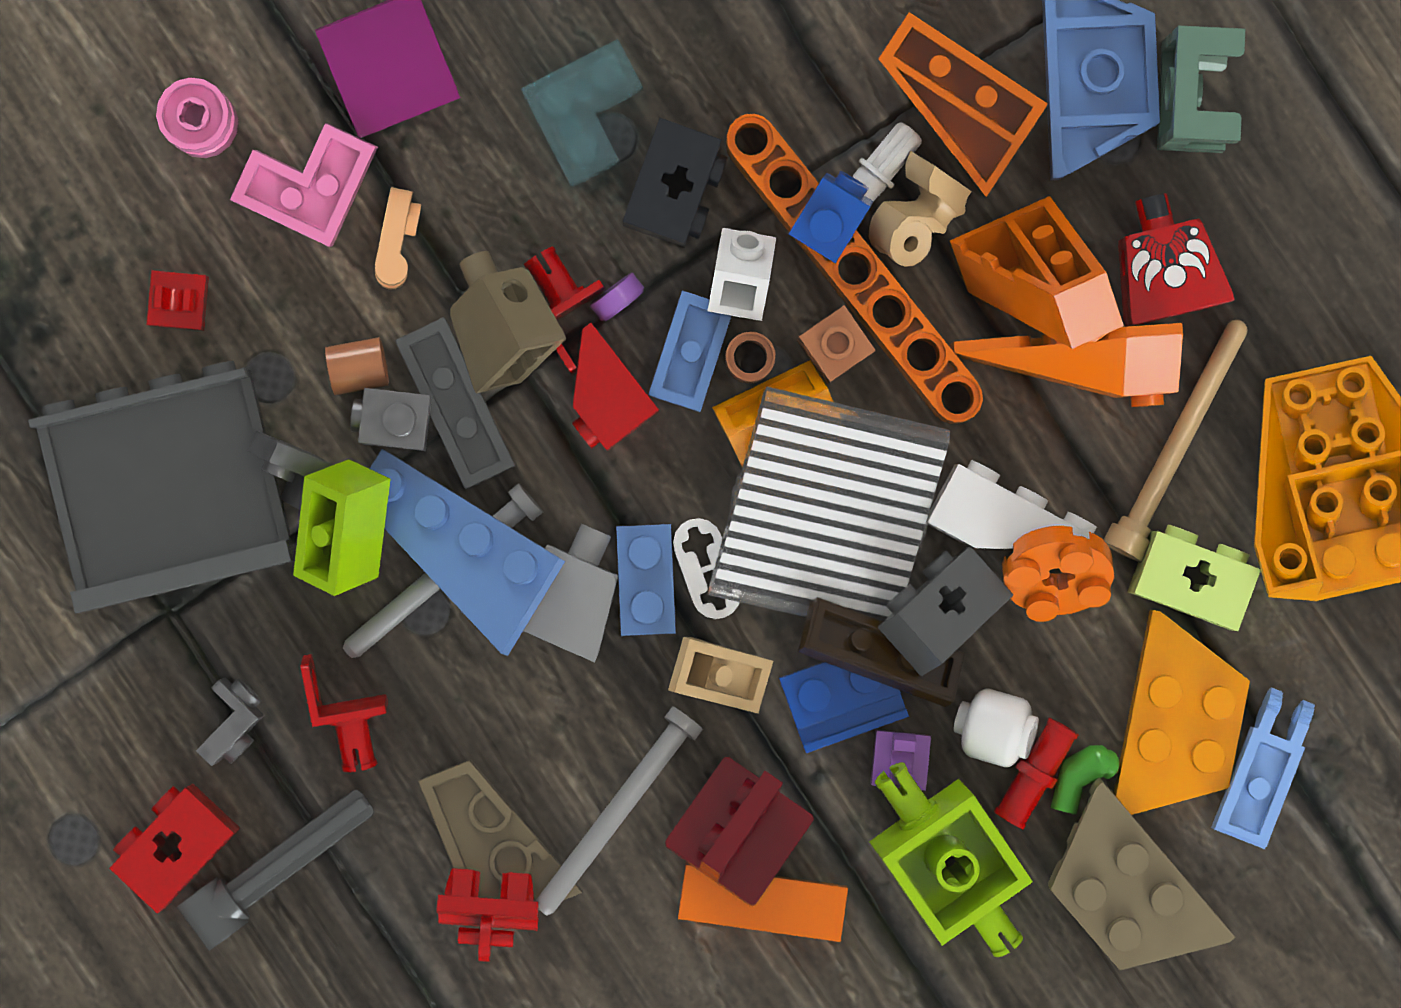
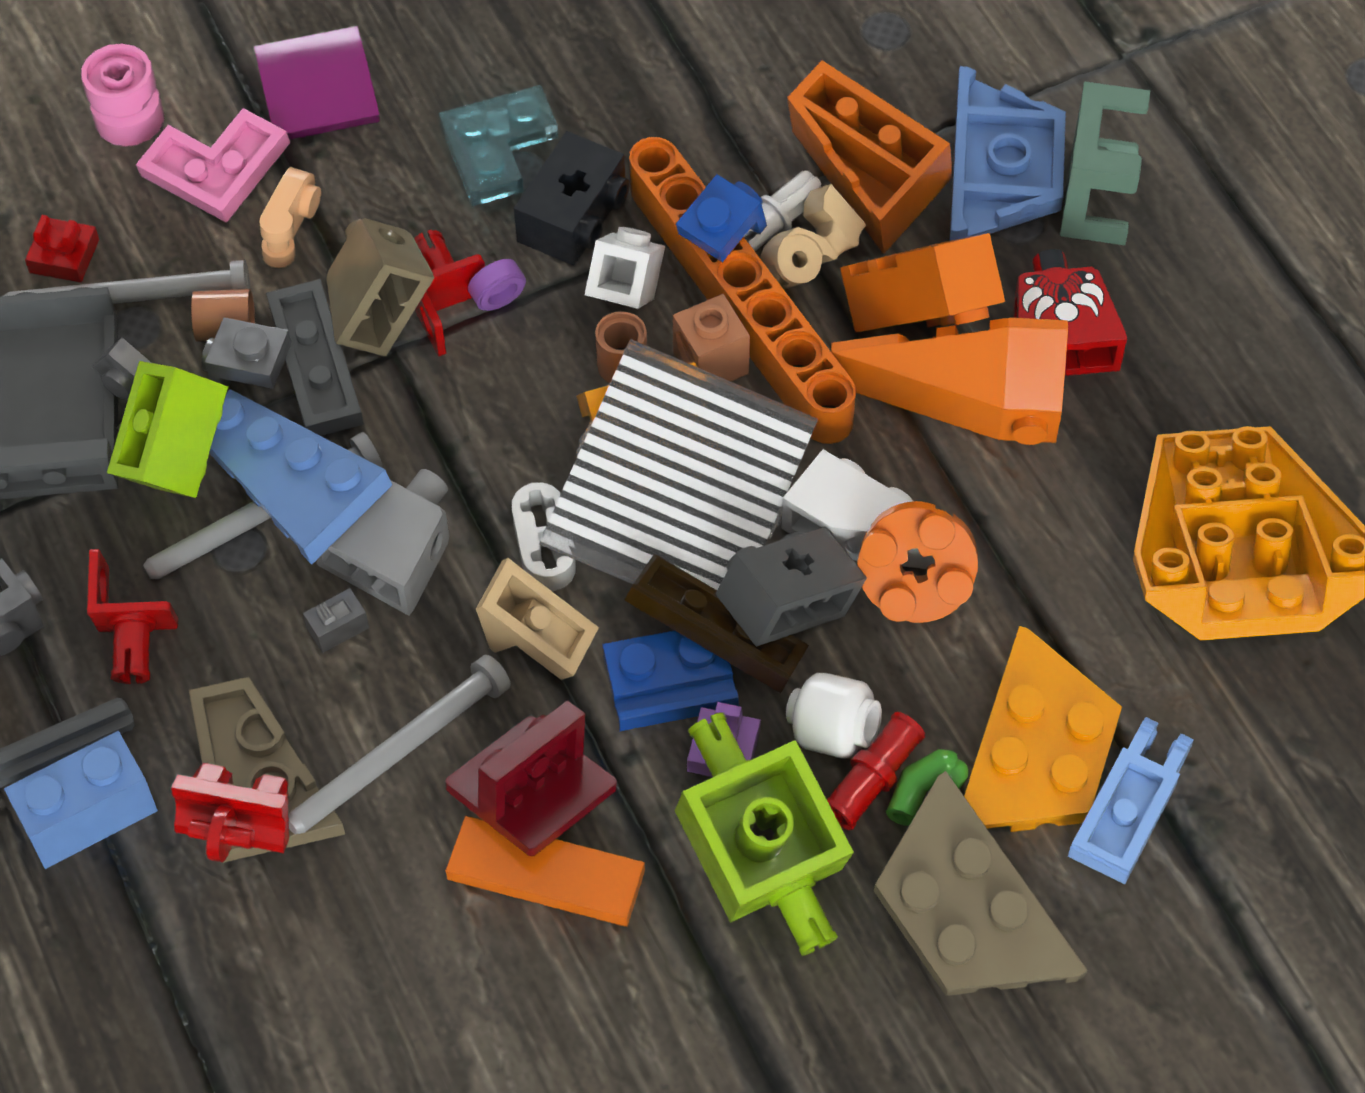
camera: 10 degrees right, 30 degrees down
(258, 343) = (166, 286): none -> light grey bar
(348, 901) = (81, 799): none -> medium blue brick
(532, 682) = (336, 620): none -> flat silver piece
(606, 394) = (471, 365): red slope -> none
(646, 579) = (475, 539): medium blue plate -> none
(689, 353) = (561, 341): medium blue plate -> none
(1131, 532) = (1002, 553): tan piece -> none
(1228, 583) = (1066, 598): yellowish green brick -> none

